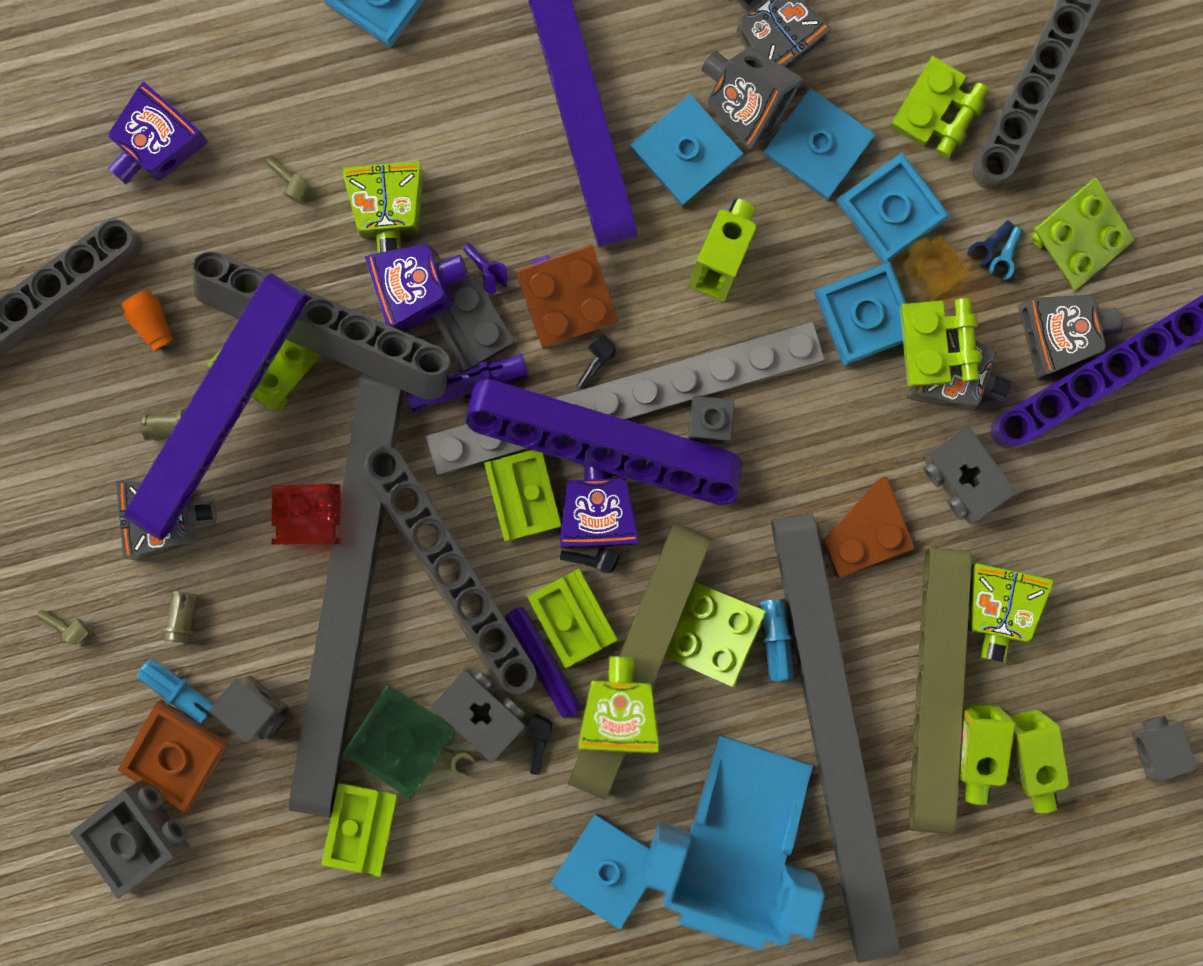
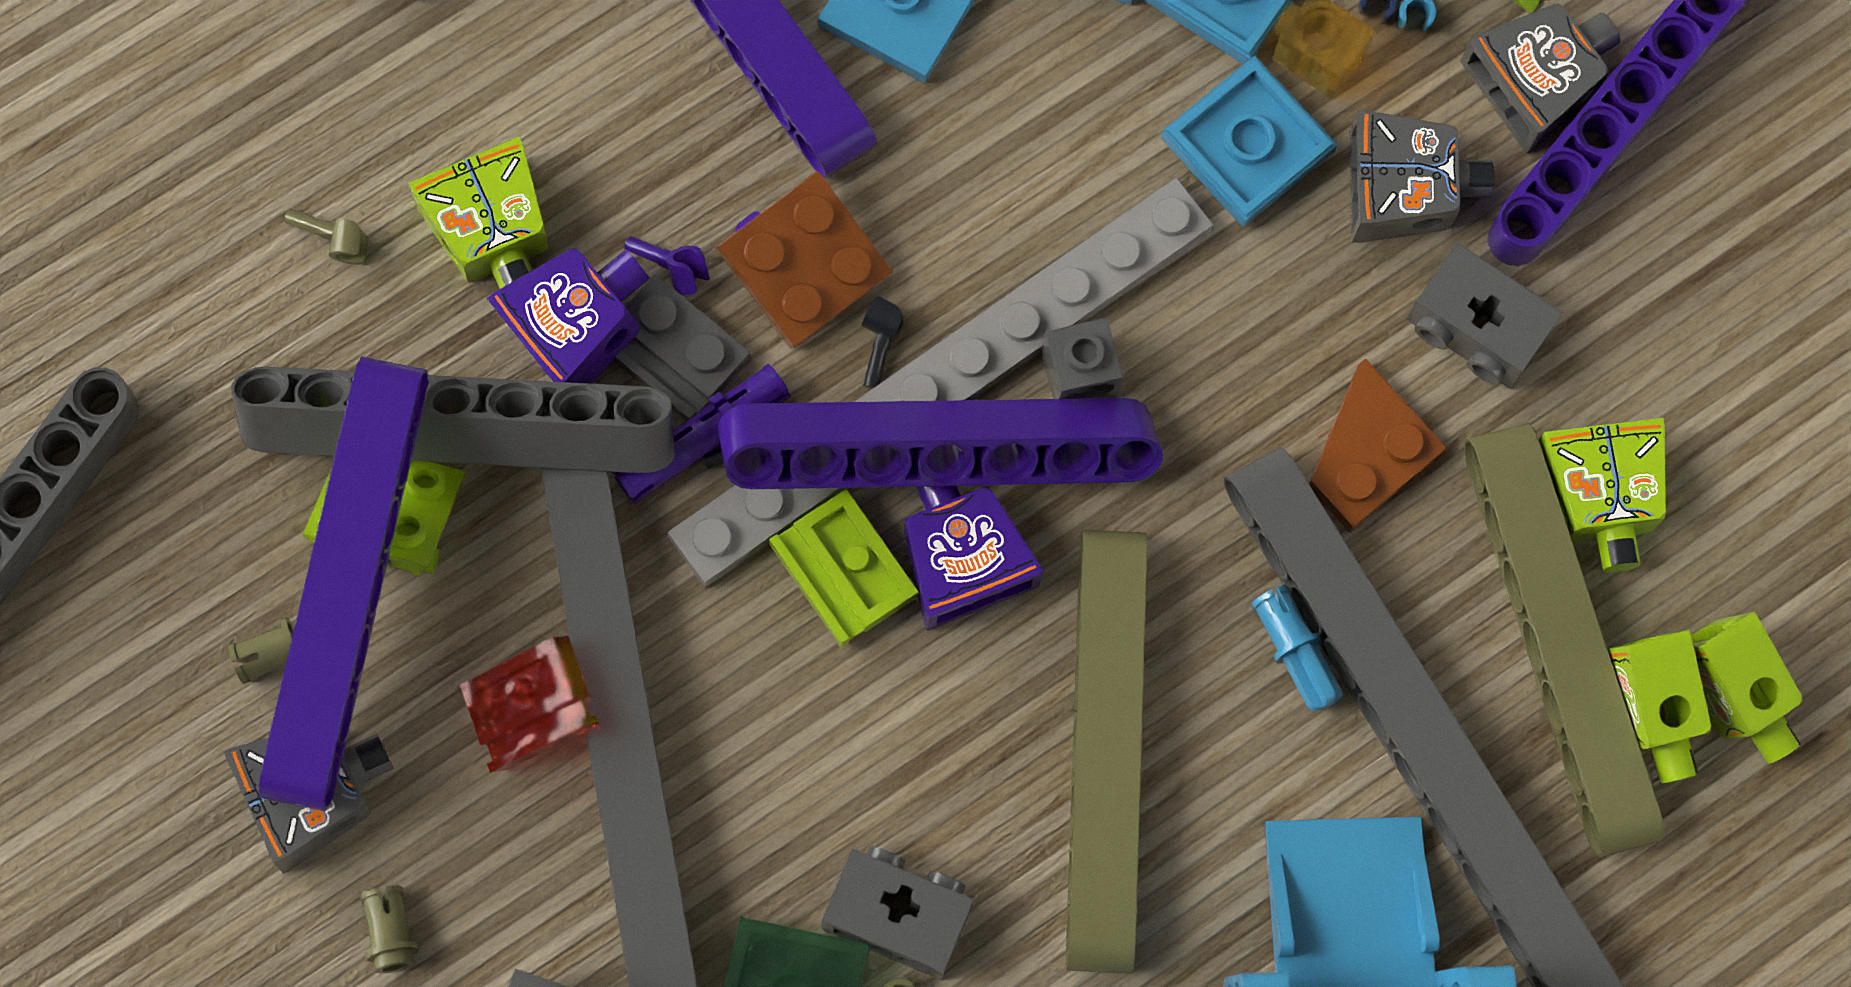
camera: 25 degrees left, 10 degrees down
(148, 319) = (187, 503): orange cone -> none
(152, 137) = (105, 236): dark purple torso -> none
(466, 581) = (809, 713): dark grey beam -> none
(539, 729) = (996, 906): black hand -> none
(543, 662) = (963, 805): dark purple axle -> none
(572, 618) = (982, 723): lime plate -> none
(604, 560) = (999, 627): black hand -> none
(619, 712) = (1109, 823): lime torso -> none
(715, 634) = (1204, 672): lime hinge -> none
(723, 250) = (1011, 120): lime torso -> none
(927, 347) = (1353, 147): lime plate -> none

